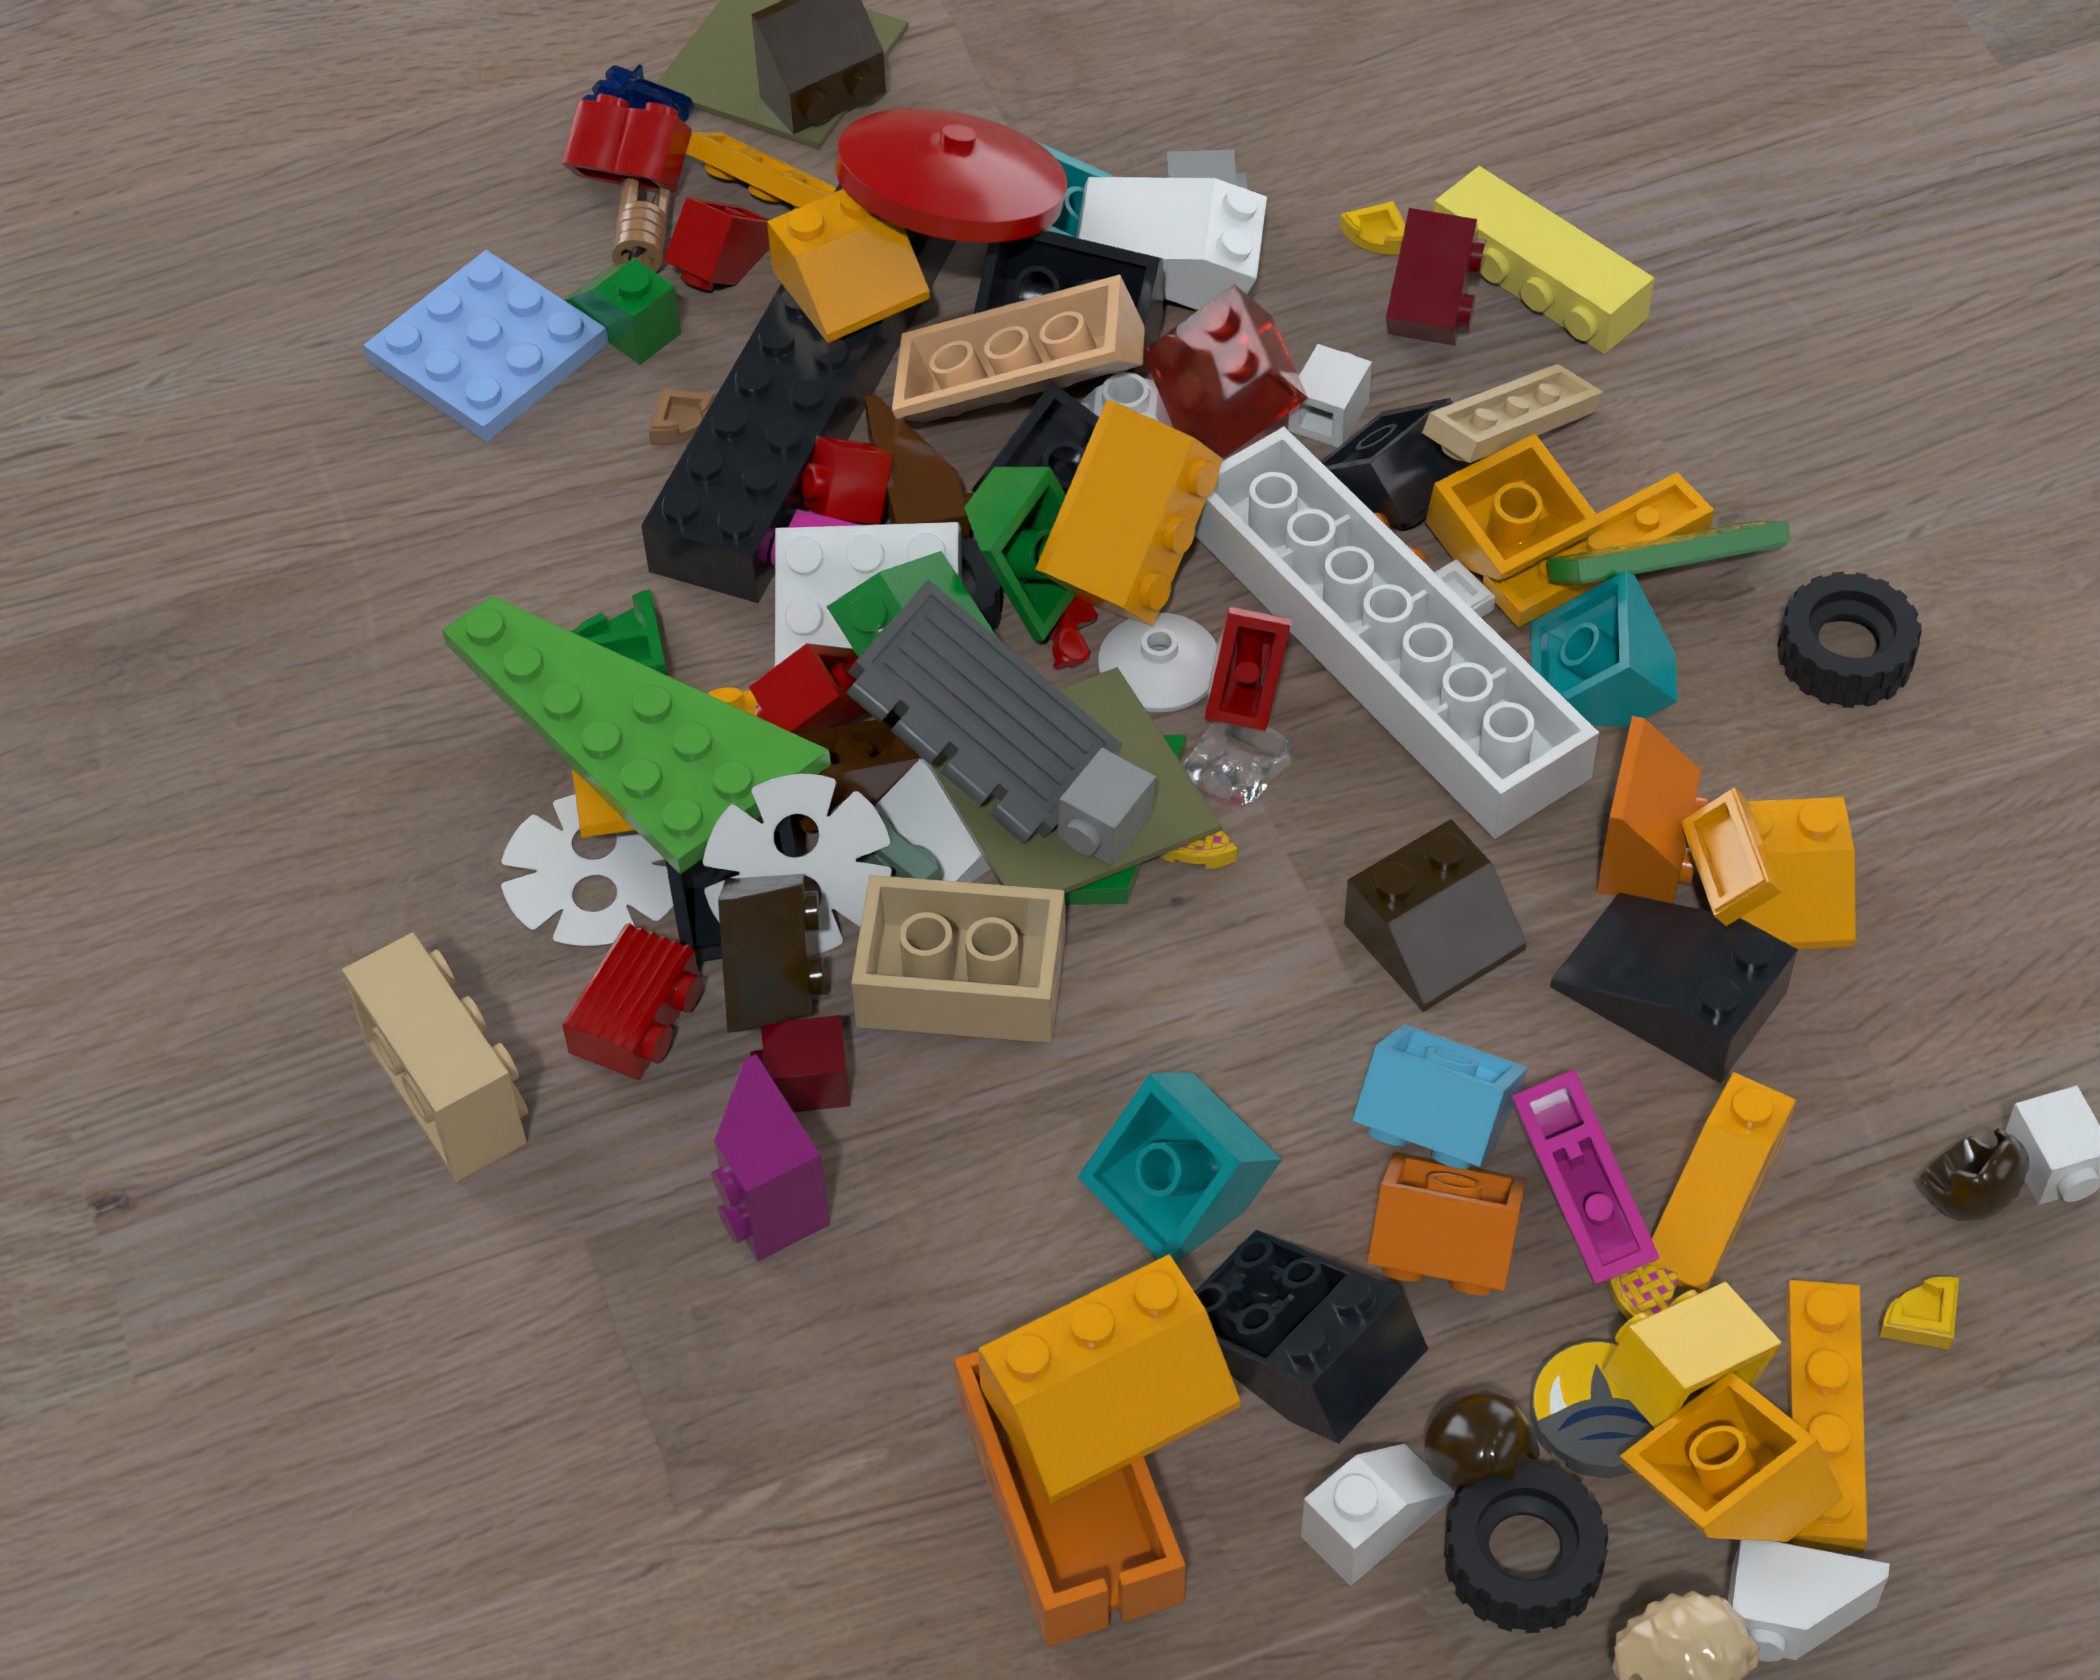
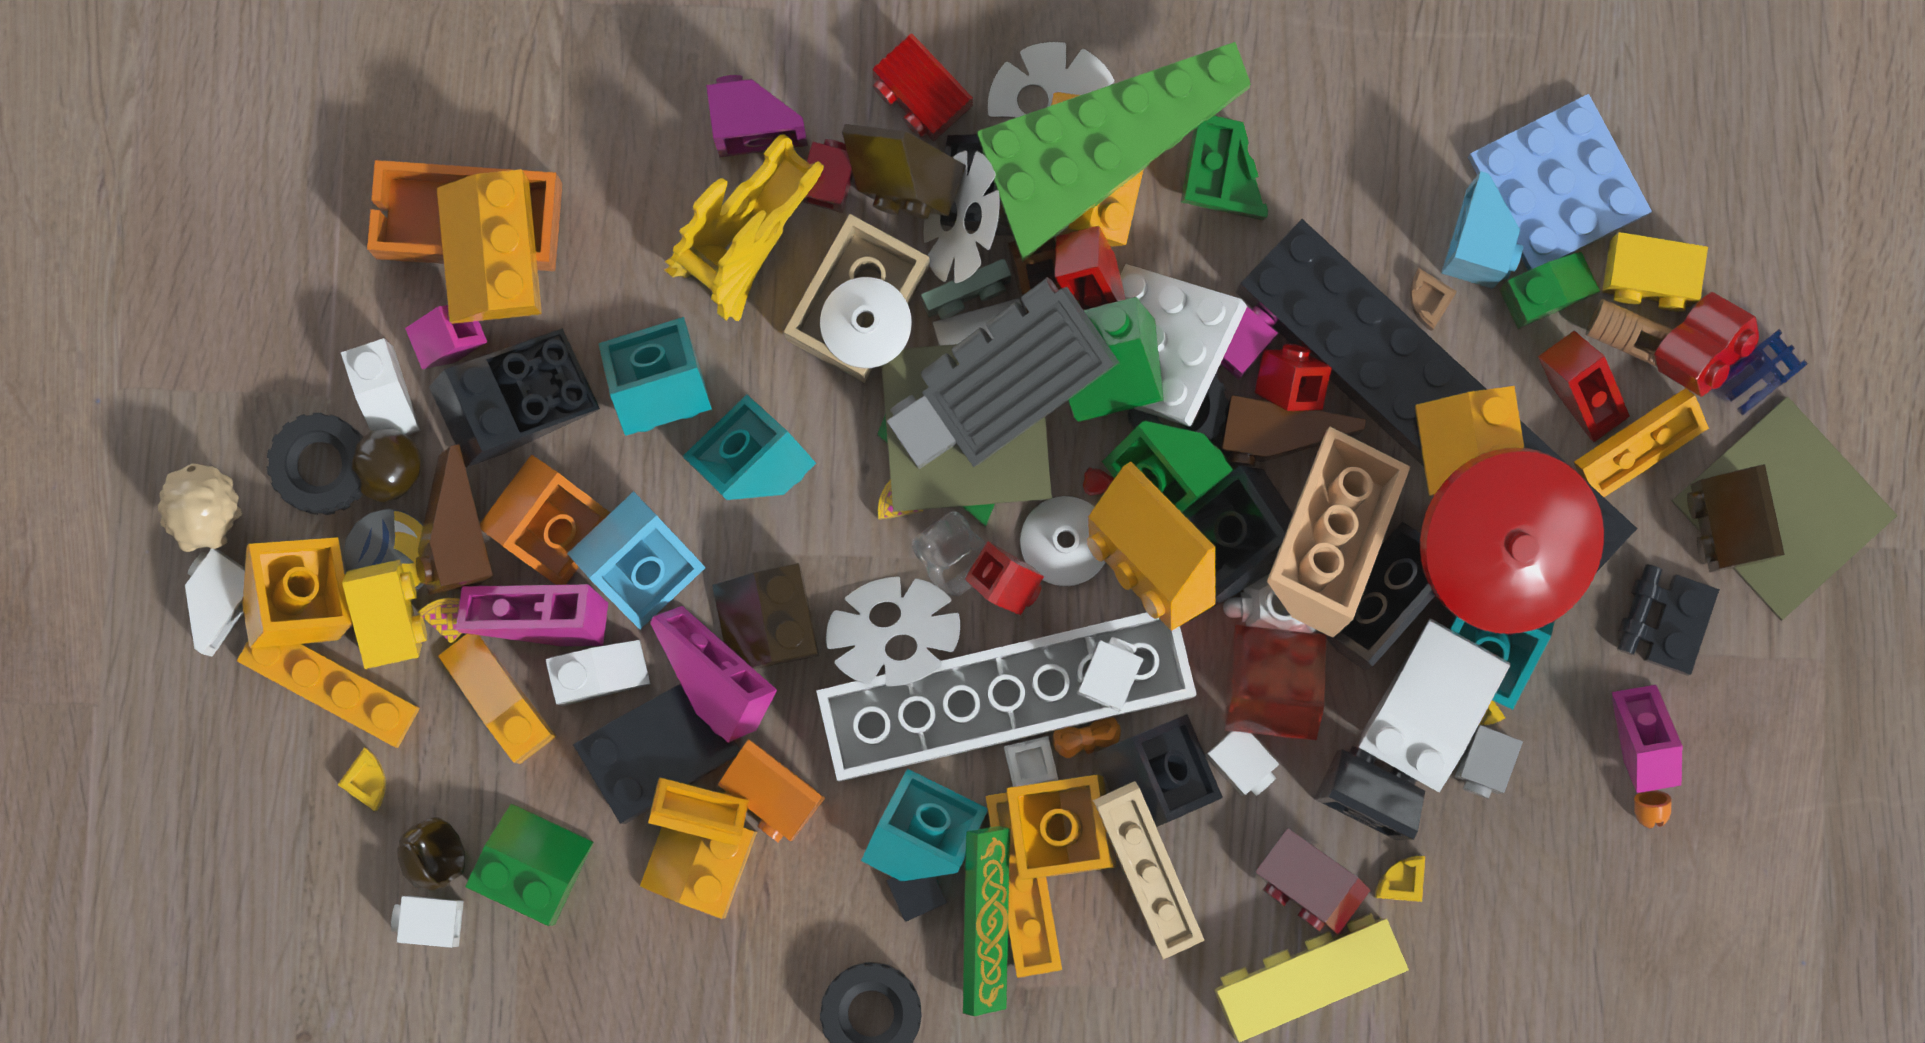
camera: 110 degrees right, 30 degrees up
(558, 222) = (1654, 271): none -> yellow brick
(581, 364) = (1484, 237): none -> medium azure slope
(913, 1099) = (749, 219): none -> yellow animal
(969, 90) = (1680, 623): none -> black plate
(992, 930) = (870, 345): none -> white dish
(1101, 72) = (1648, 739): none -> dark pink slope
(1173, 52) = (1652, 808): none -> orange hinge
(1229, 1016) = (749, 454): none -> teal slope
(1259, 1443) = (443, 343): none -> dark pink brick
(1305, 248) = (1372, 795): none -> black slope
(1310, 492) = (1111, 673): none -> white brick
(1427, 766) = (869, 653): none -> white piece
(1523, 1324) = (451, 537): none -> reddish brown slope
(1547, 929) = (716, 679): none -> dark pink slope
(1627, 1083) = (597, 672): none -> white slope
(1692, 650) = (916, 896): none -> black tile
(1913, 1059) = (530, 865): none -> green slope

